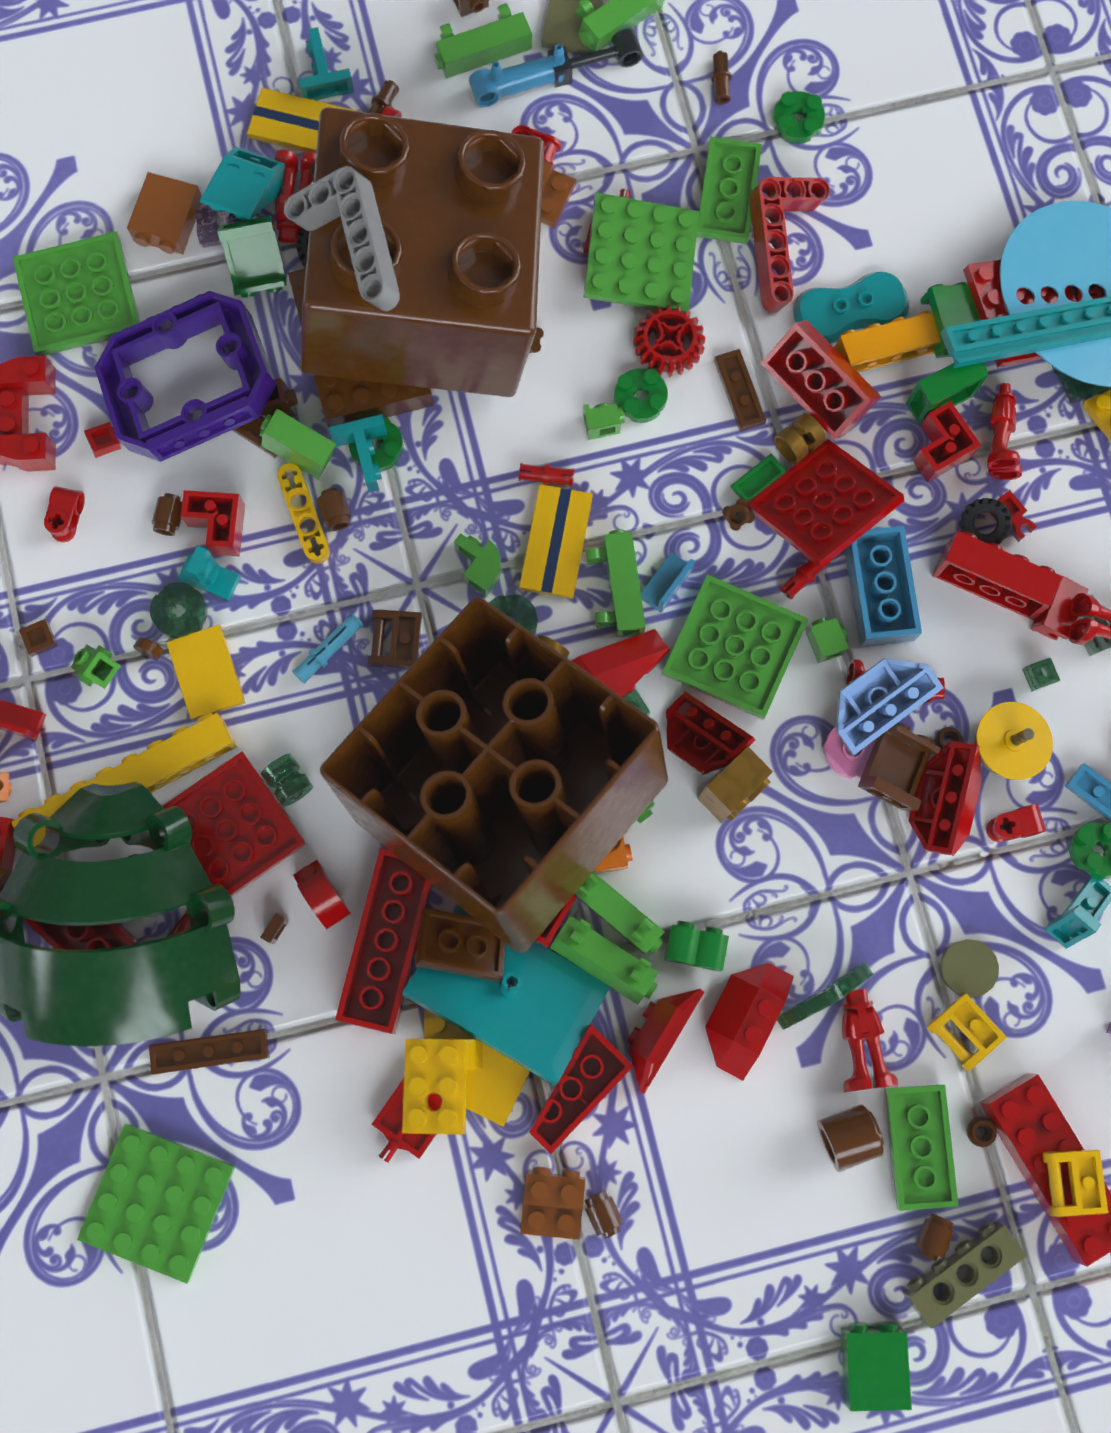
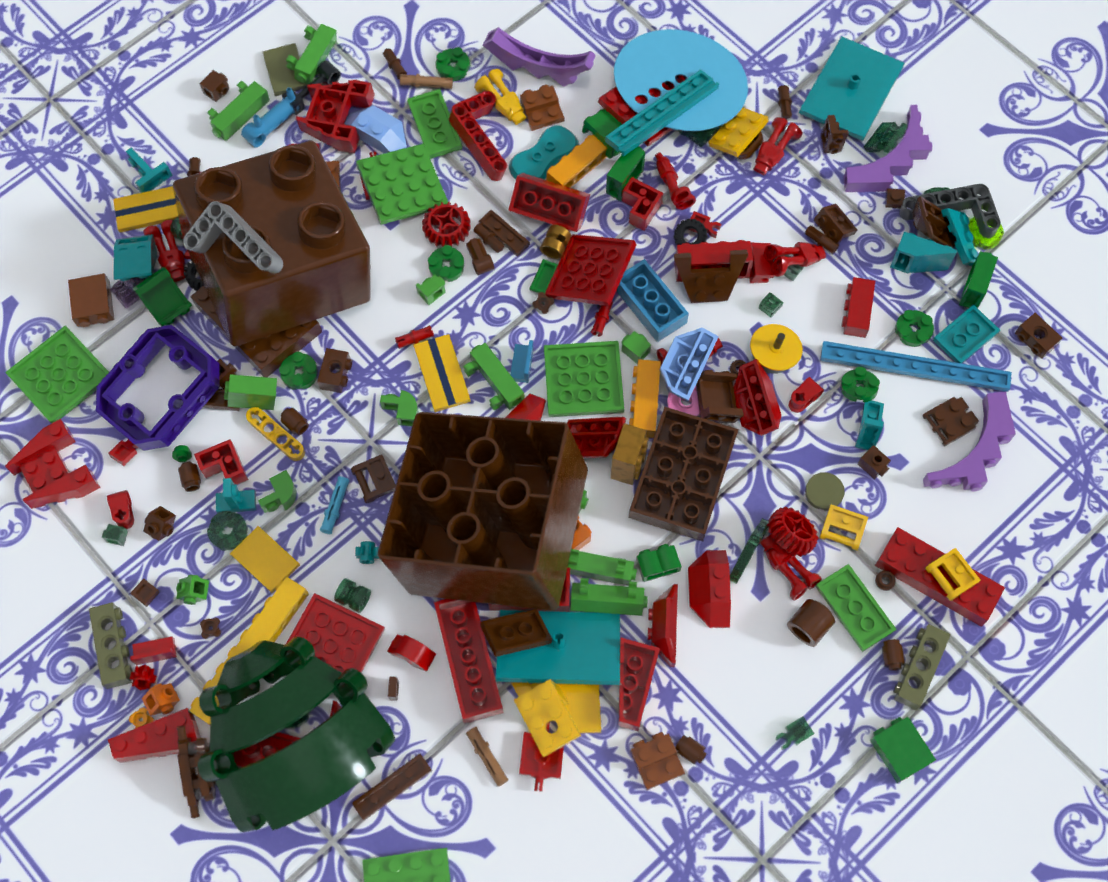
camera: 25 degrees left, 10 degrees down
(40, 543) = (115, 535): none -> clear green piece
(88, 721) = (206, 623): none -> reddish brown plate
(99, 558) = (159, 523): none -> reddish brown brick
(148, 648) = (220, 562): reddish brown tile -> none
(173, 479) = (181, 453): none -> green plate
(274, 597) = (284, 493): none -> bright green brick
(333, 732) = (366, 552): none -> teal gear
(344, 1079) = (482, 749): none -> medium nougat pin
(361, 433) = (289, 368): teal bracket -> none
(423, 452) = (334, 360): none -> reddish brown brick
(600, 103) = (330, 109): none -> red wedge
(648, 159) = (378, 129): none -> light blue wedge
(688, 413) = (481, 260): none -> reddish brown piece
(715, 387) = (488, 238): none -> reddish brown axle
(748, 123) = (426, 81): none -> medium nougat pin
(753, 1267) = (797, 732): none -> clear green plate
(795, 847) = (683, 473): none -> reddish brown brick
(802, 716) = (646, 396): none -> light orange brick
(843, 211) = (507, 104): none -> yellow piece
(884, 238) = (541, 107): none -> dark orange plate
(894, 1004) = (792, 531): none -> red gear
(914, 172) = (538, 62): none -> medium lavender arch
(975, 604) = (710, 283): none -> reddish brown wing
(1058, 967) = (874, 462): none -> reddish brown brick

